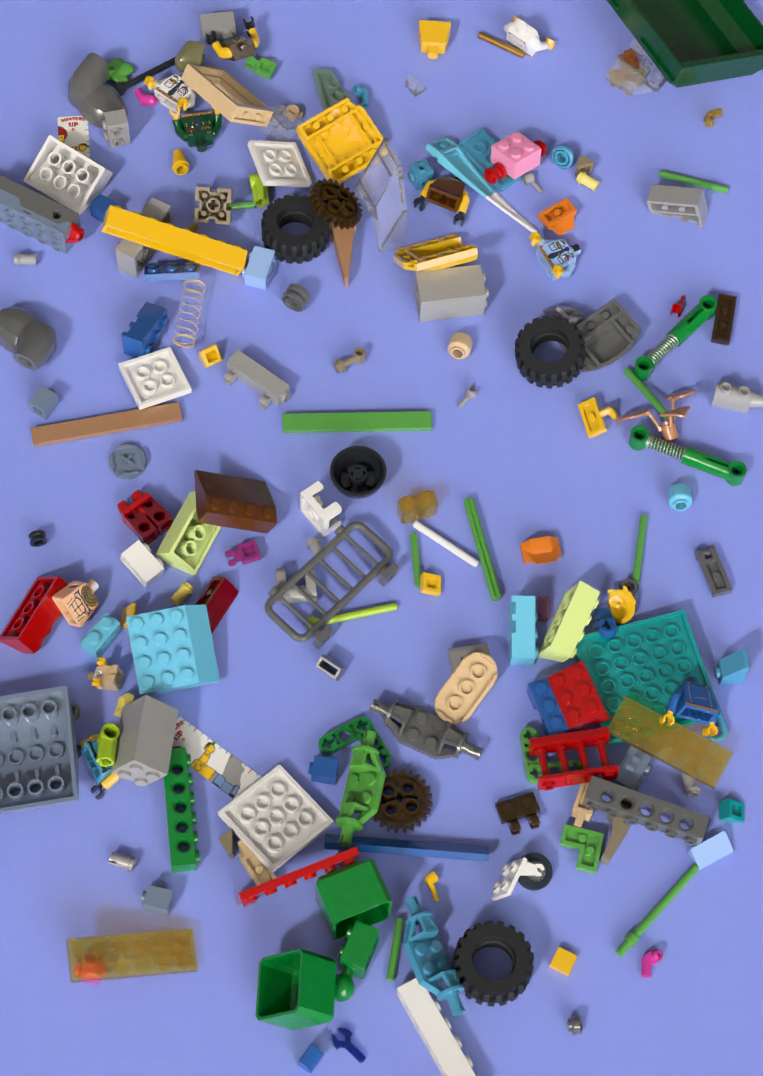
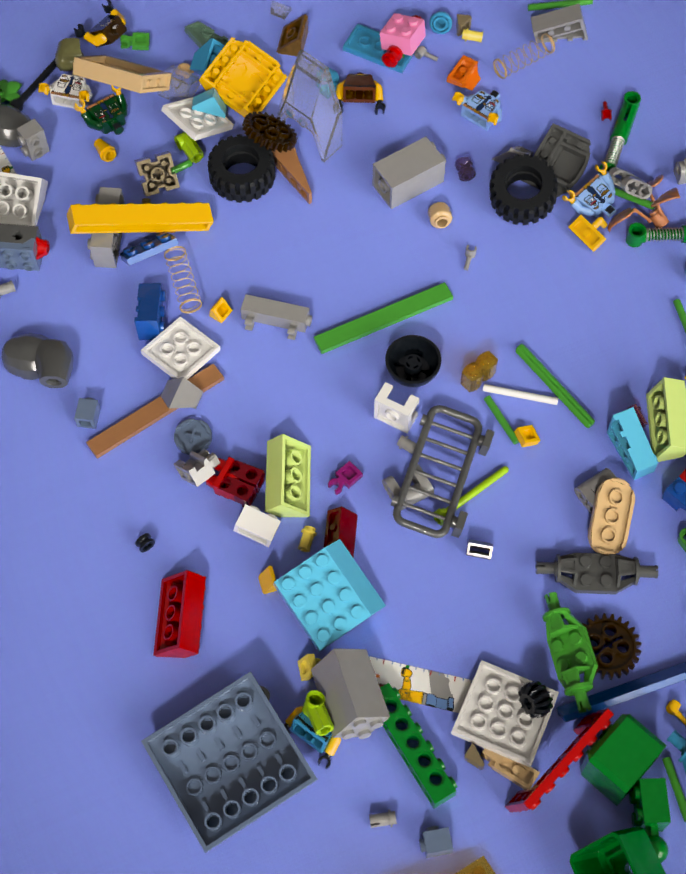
camera: 20 degrees left, 0 degrees up
(77, 601) = (214, 587): light nougat torso -> none
(100, 206) = (55, 217): blue brick -> none
(101, 636) = (252, 610): medium azure brick -> none
(106, 676) = (276, 646): tan piece -> none
(115, 491) = (198, 467): none -> light grey hips
(134, 419) = (181, 394): none -> light grey slope
(145, 99) = (44, 107): dark pink arm -> none
(221, 22) = (82, 14): light grey brick -> none
(234, 502) = (315, 433): reddish brown slope -> none
(259, 267) = (225, 215): light blue brick -> none
(296, 297) = (273, 228): dark grey wheel -> none
(298, 154) = (209, 103): none -> medium azure slope
(304, 815) = (535, 699): none -> black gear
(316, 105) = (205, 55): none -> dark azure slope
(324, 770) = (524, 647): blue brick -> none
(356, 734) = (534, 602): green beam -> none
(358, 358) = (355, 261): dark tan bar -> none
(363, 94) = (237, 32): dark azure arm -> none
(413, 119) = (293, 36): none -> pearl gold slope
(435, 254) = (380, 142): yellow wedge -> none
(455, 160) = (356, 62): medium azure plate -> none
(508, 310) = (465, 169): none -> clear purple wheel
(540, 550) = (606, 366): orange slope -> none
(617, 385) = (595, 196): none -> light blue torso
(654, 216) = (552, 42): none -> piece
(660, 386) = (630, 183): none -> light grey connector
(723, 319) = (650, 108): dark brown plate -> none

